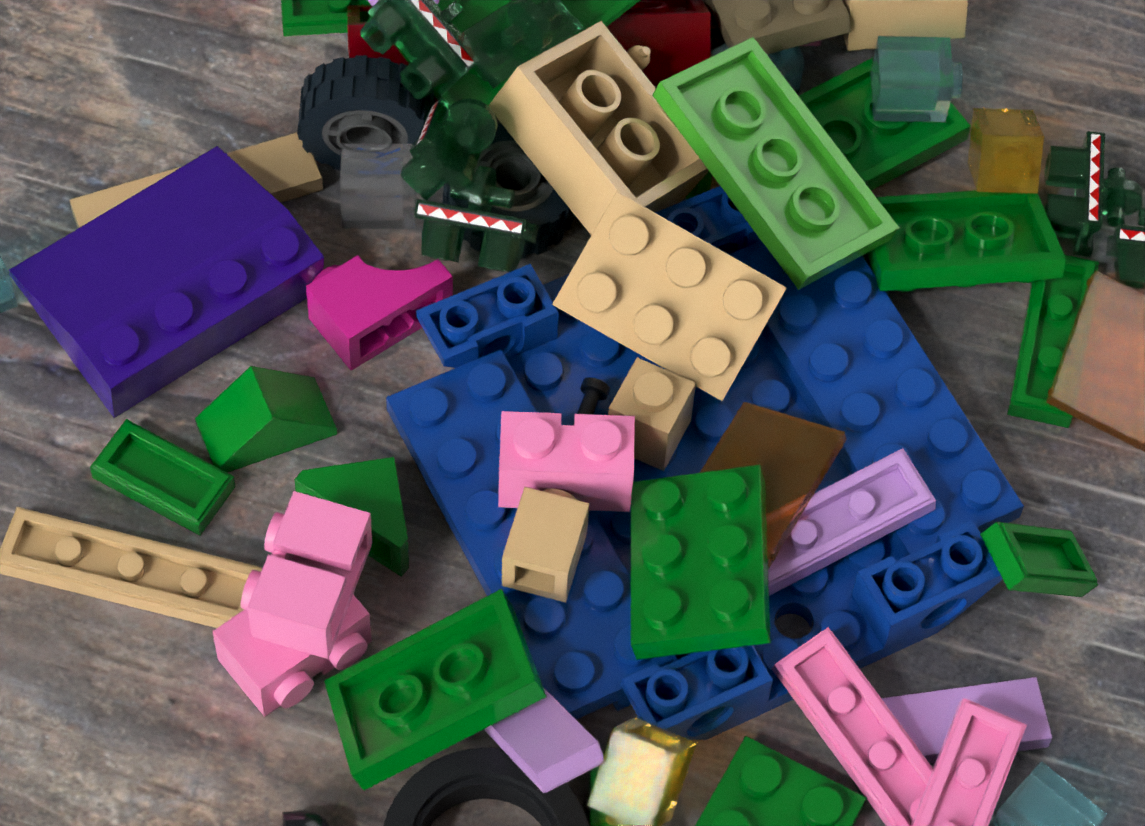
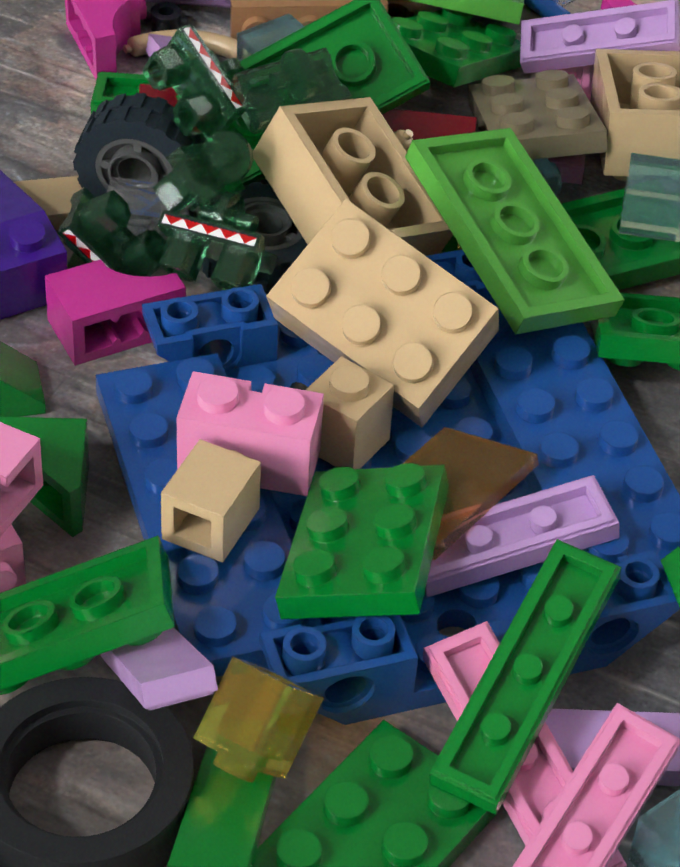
camera: 10 degrees right, 15 degrees down
(352, 224) = (99, 231): none -> clear green hips
(876, 681) = (525, 677): none -> green tile

